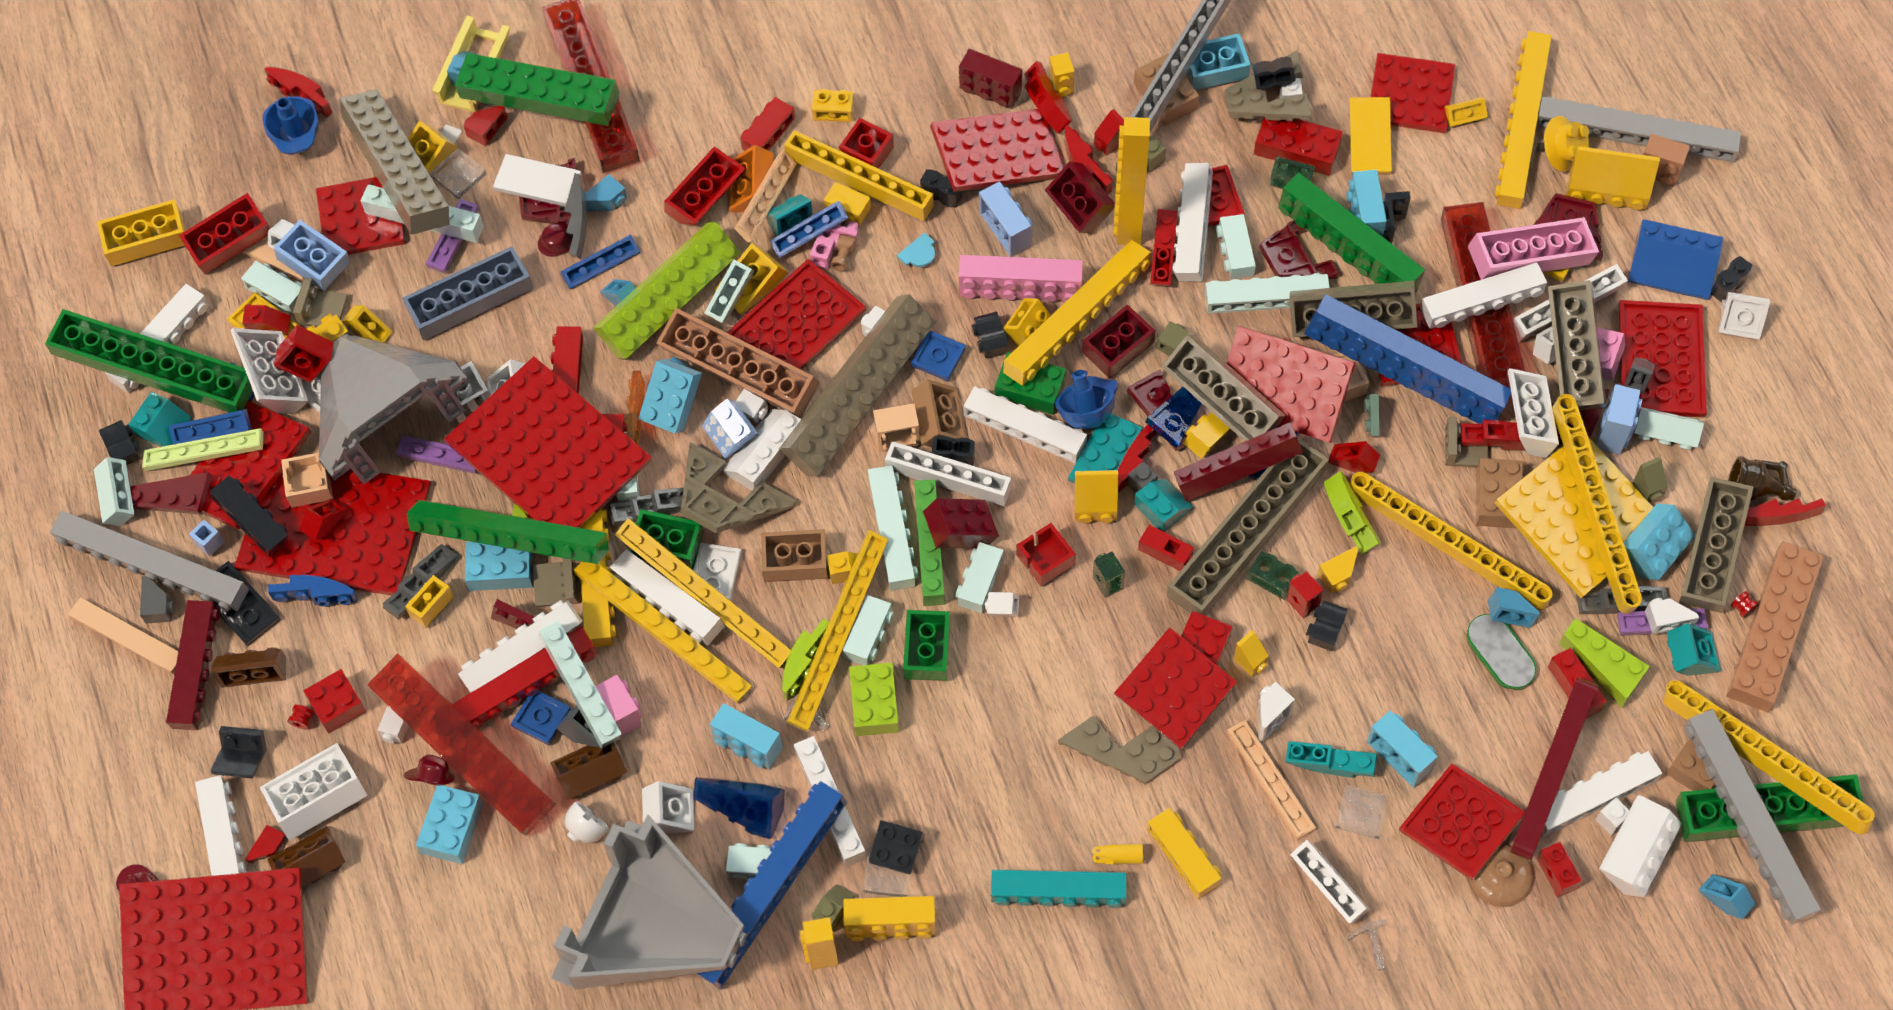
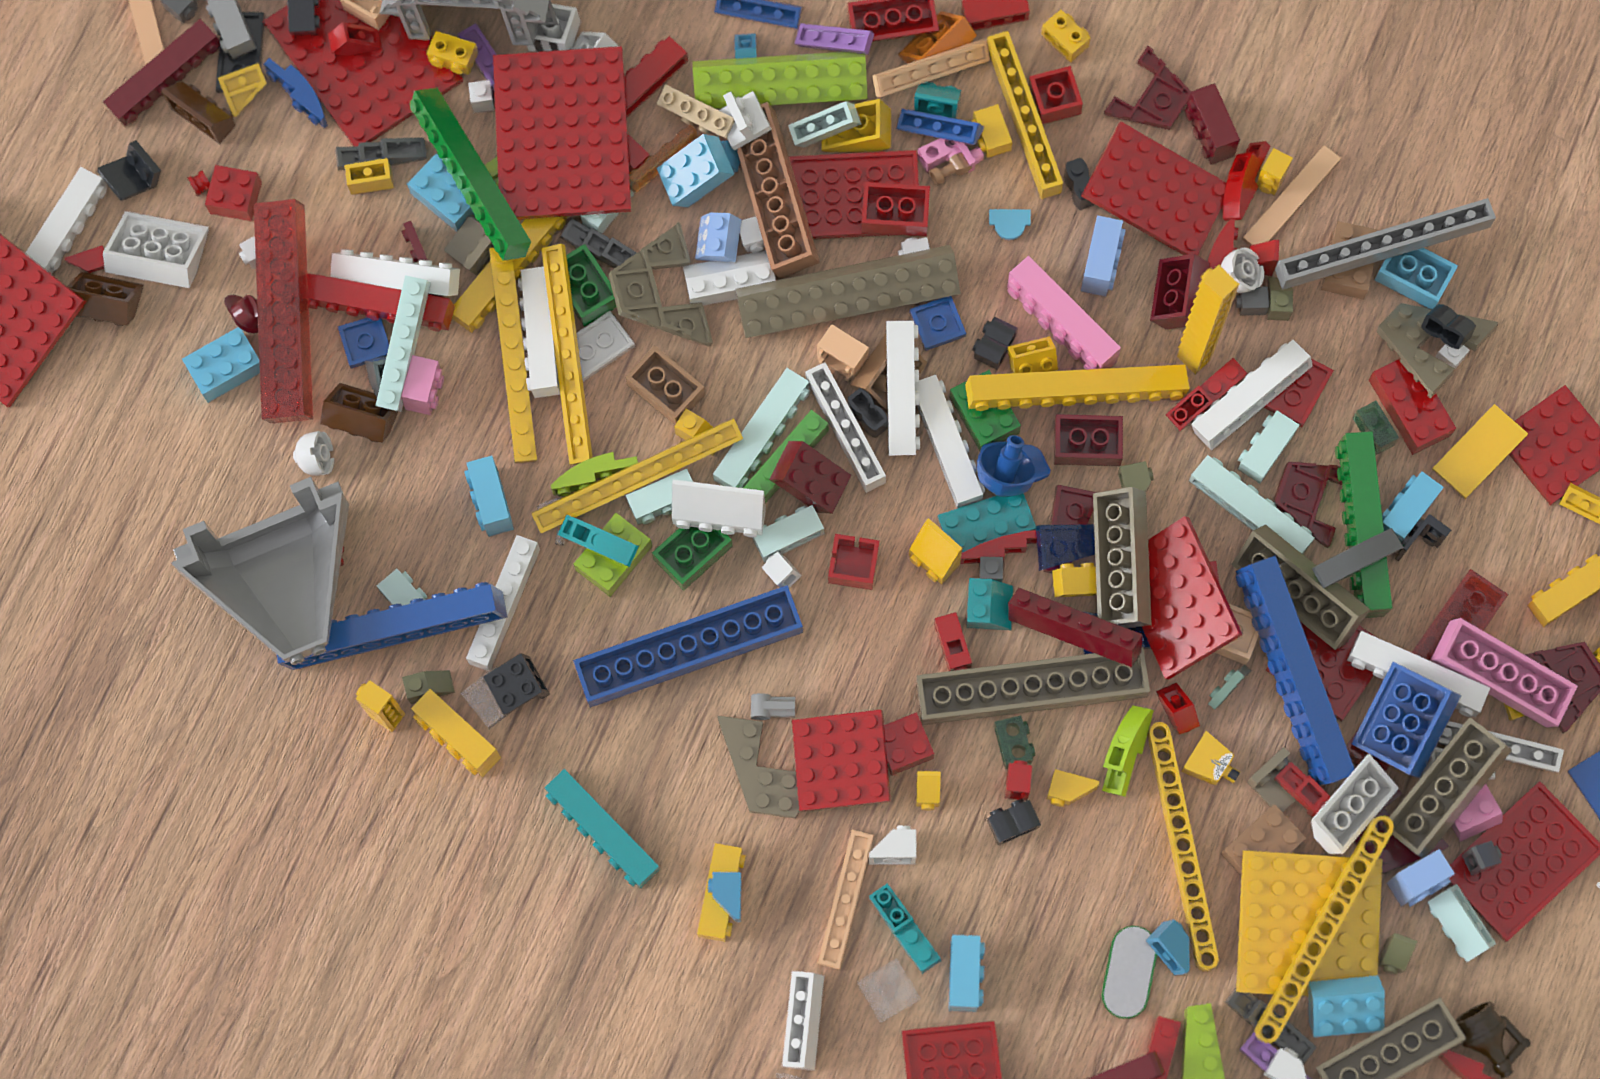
camera: 45 degrees right, 10 degrees up
(266, 622) = (242, 86): none -> yellow wing
(407, 466) = (452, 53): none -> yellow brick
(457, 479) = (481, 96): none -> white brick
(627, 359) = (695, 112): none -> tan bracket
(669, 807) = (385, 498): white slope -> none
(670, 333) = (748, 117): none -> white bracket
(678, 232) = (834, 38): none -> medium lavender plate
(749, 804) = (446, 550): clear blue wedge -> none
(836, 303) = (895, 209): none -> red brick
(858, 691) = (598, 540): none -> teal slope
(924, 592) = (718, 508): none -> white slope
(938, 92) = (1160, 101): none -> dark red wing
(962, 412) = (901, 387): none -> white brick
(990, 712) = (688, 646): none -> blue brick
(1085, 703) = (765, 706): none -> light grey piece
(1087, 84) = (1292, 197): none -> light nougat tile
(1104, 149) = (1244, 268): none -> white cylinder
(1108, 574) = (883, 622): clear green brick -> none
(1119, 854) = (673, 847): yellow piece -> none
(1194, 843) = (727, 892): none -> dark azure slope
(1373, 255) = (1357, 558): none -> dark grey slope
(1410, 471) = (1211, 761): none -> yellow torso
(1507, 327) = (1406, 720): none -> blue slope

